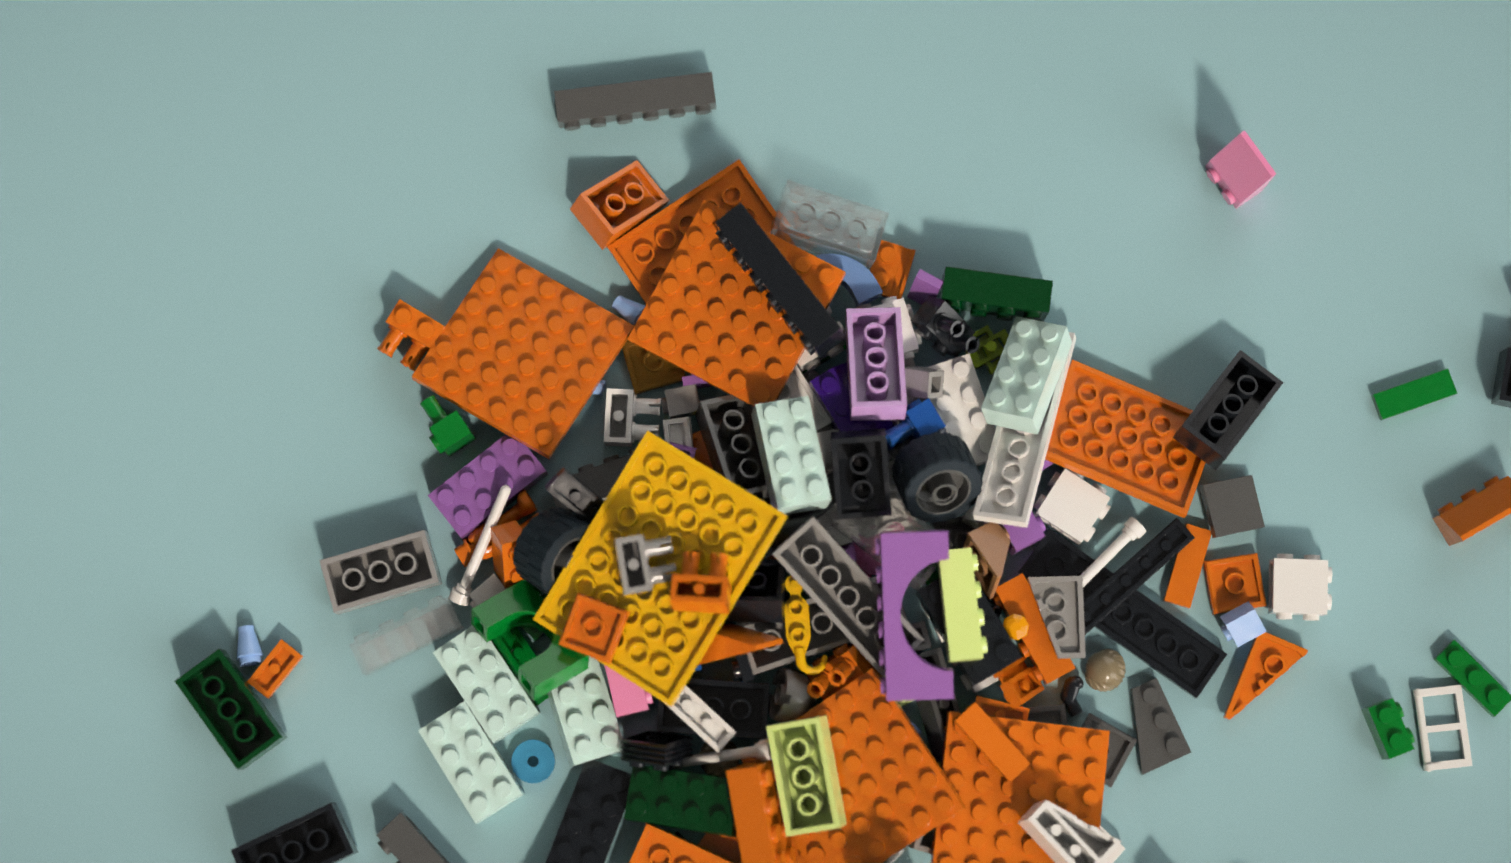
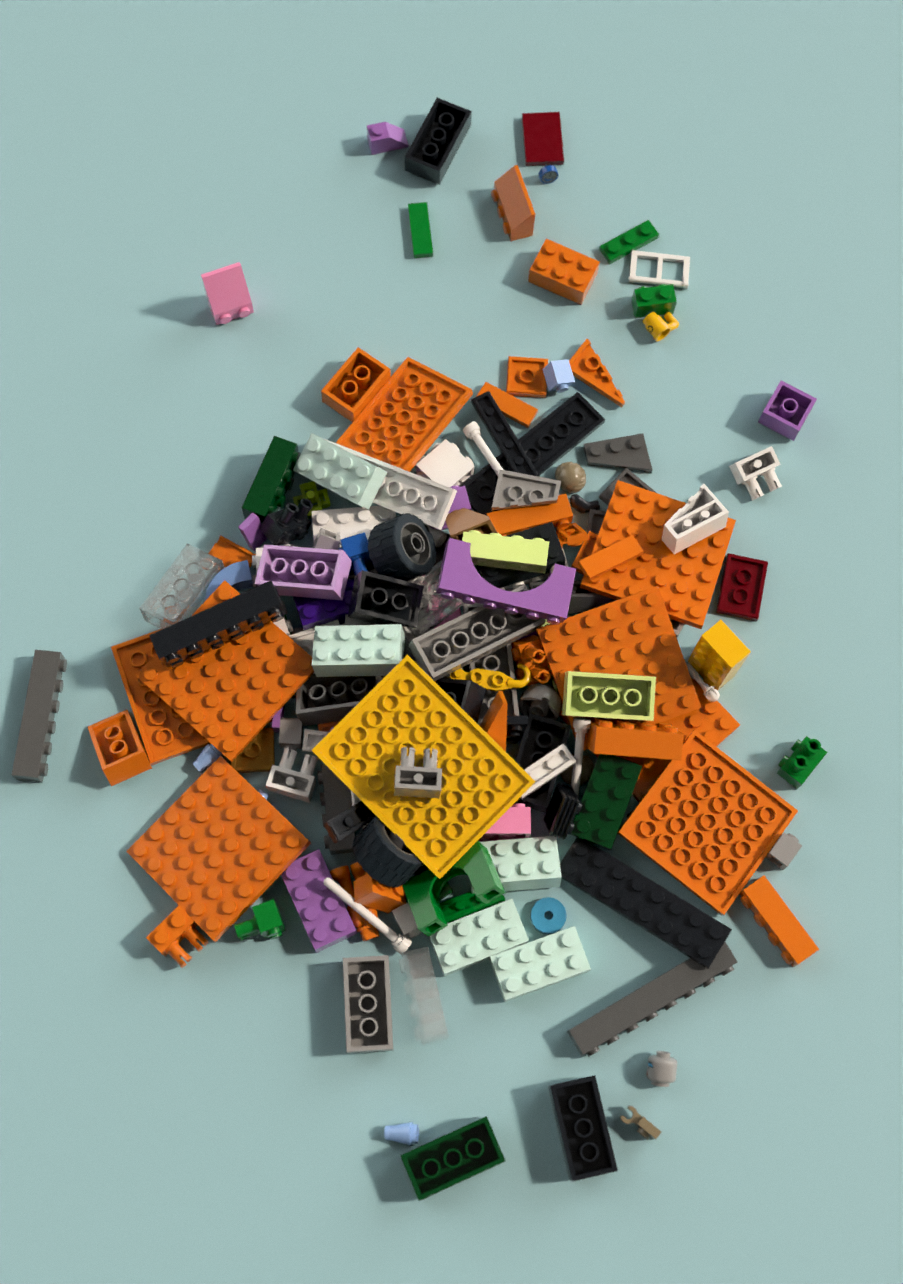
camera: 80 degrees left, 10 degrees down
(275, 669) = (426, 1114): orange plate -> none
(594, 628) = (459, 828): orange tile -> none
(701, 592) = (453, 730): orange brick -> none
(1016, 626) = (525, 522): light orange tile -> none
(1160, 365) = (355, 384): none -> orange brick
(1228, 410) = (401, 345): black brick -> none
(1232, 506) = (471, 363): dark grey tile -> none
(1299, 587) = (540, 333): white brick -> none
(1351, 742) = (658, 327): none -> yellow piece
(1400, 598) = (563, 271): none -> orange brick

